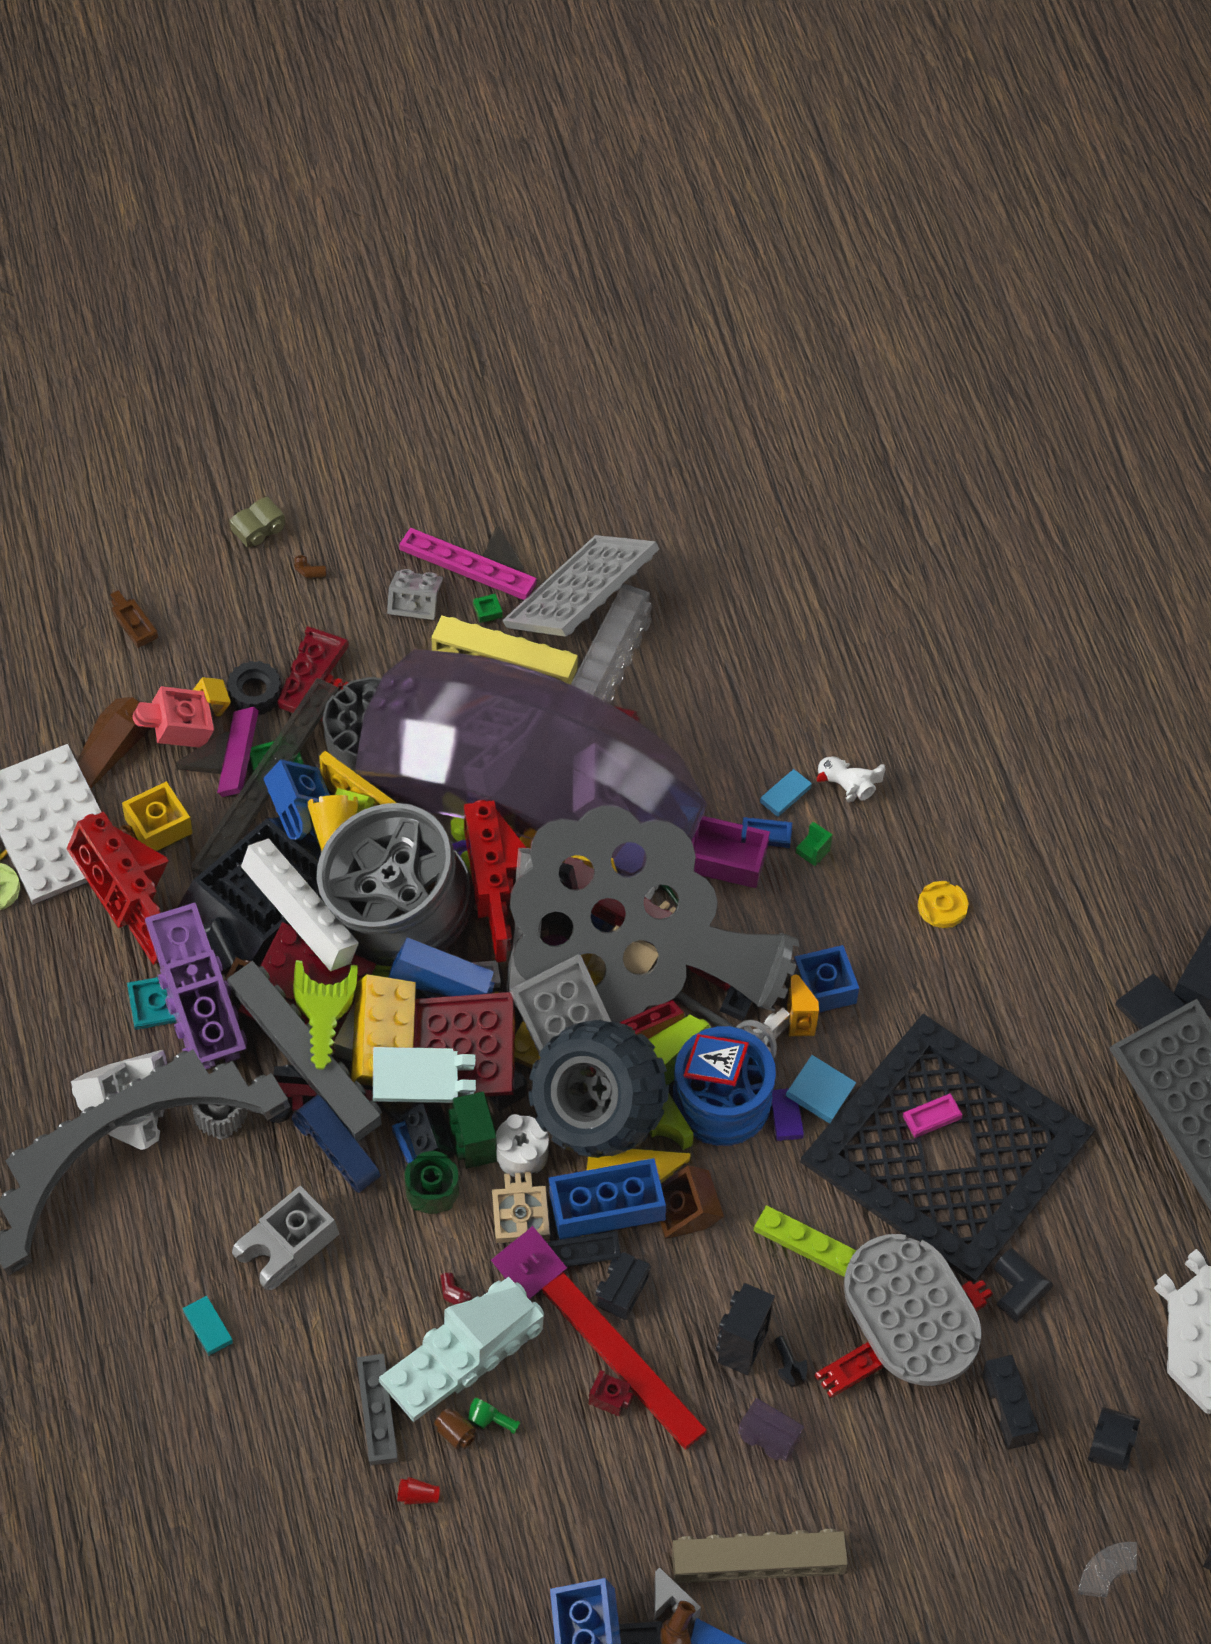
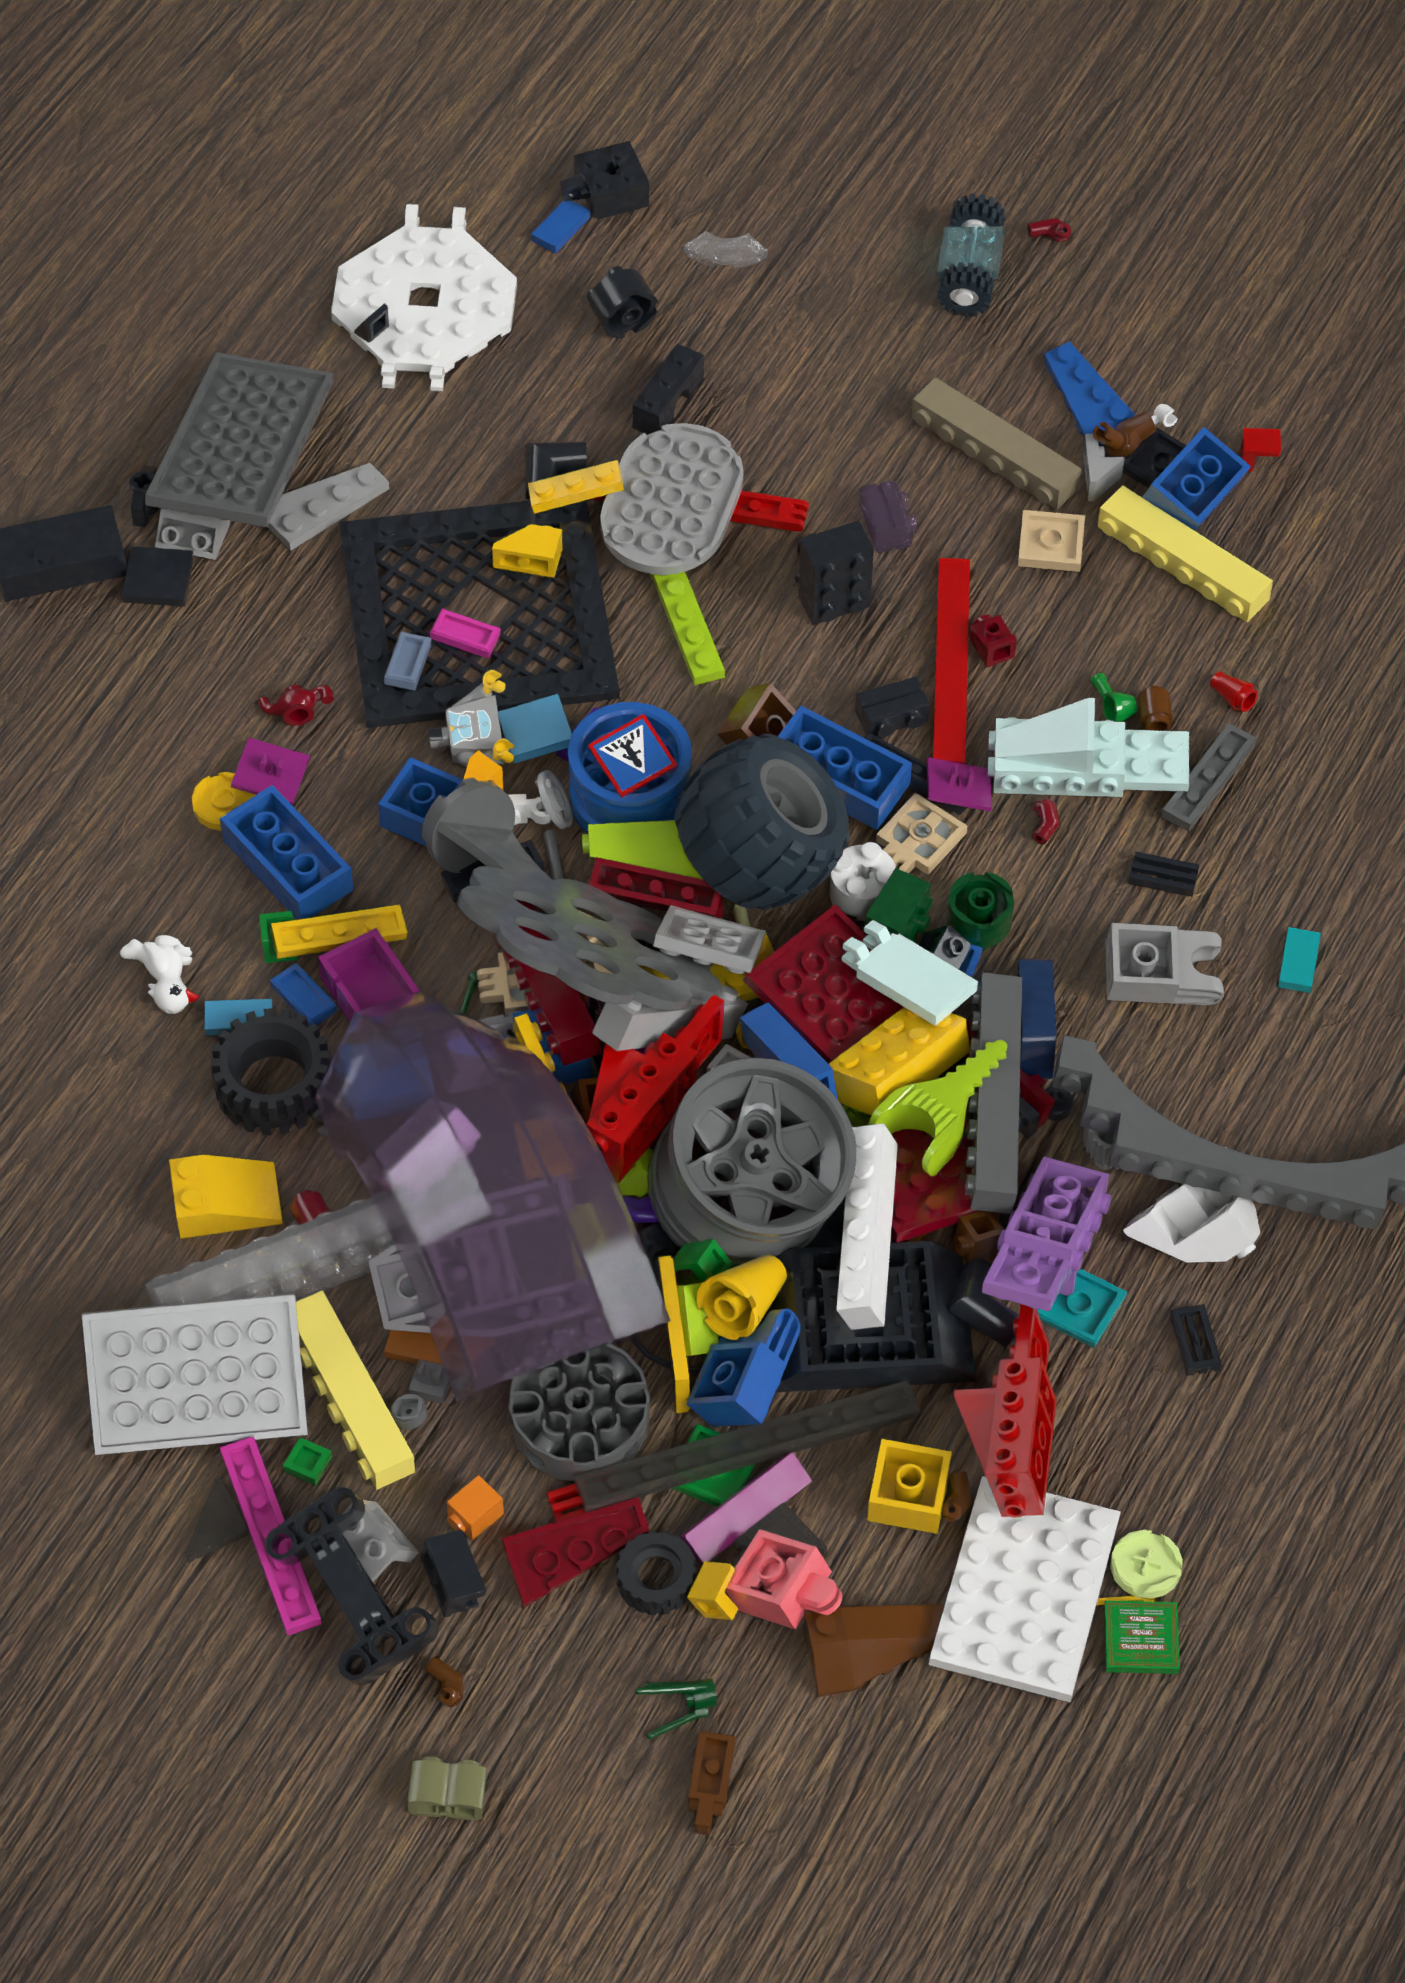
camera: 135 degrees left, 0 degrees up
(85, 1043) = (1201, 1365): none -> black tile
(176, 647) = (696, 1694): none -> dark green plant
(341, 1307) = (1165, 870): none -> black tile
(358, 550) = (351, 1585): none -> black beam
(358, 610) = (452, 1572): none -> black hinge
(378, 647) = (474, 1508): none -> orange brick
(535, 1574) = (1184, 554): none -> light yellow brick
(646, 1510) = (1051, 540): none -> tan plate
(680, 694) = (223, 1194): none -> yellow slope
(735, 744) = (268, 1038): none -> black tyre
(784, 872) = (334, 930): none -> yellow plate
(848, 1050) = (475, 725): none -> torso
(864, 888) = (286, 854): none -> blue brick
(938, 939) = (270, 765): none -> magenta piece
(941, 1064) = (407, 661): none -> sand blue tile
(951, 1197) = (530, 551): none -> yellow slope
(973, 988) = (297, 703): none -> dark red piece
(977, 1261) = (576, 486): none -> yellow plate
(1122, 1136) = (321, 504): none -> light grey wing

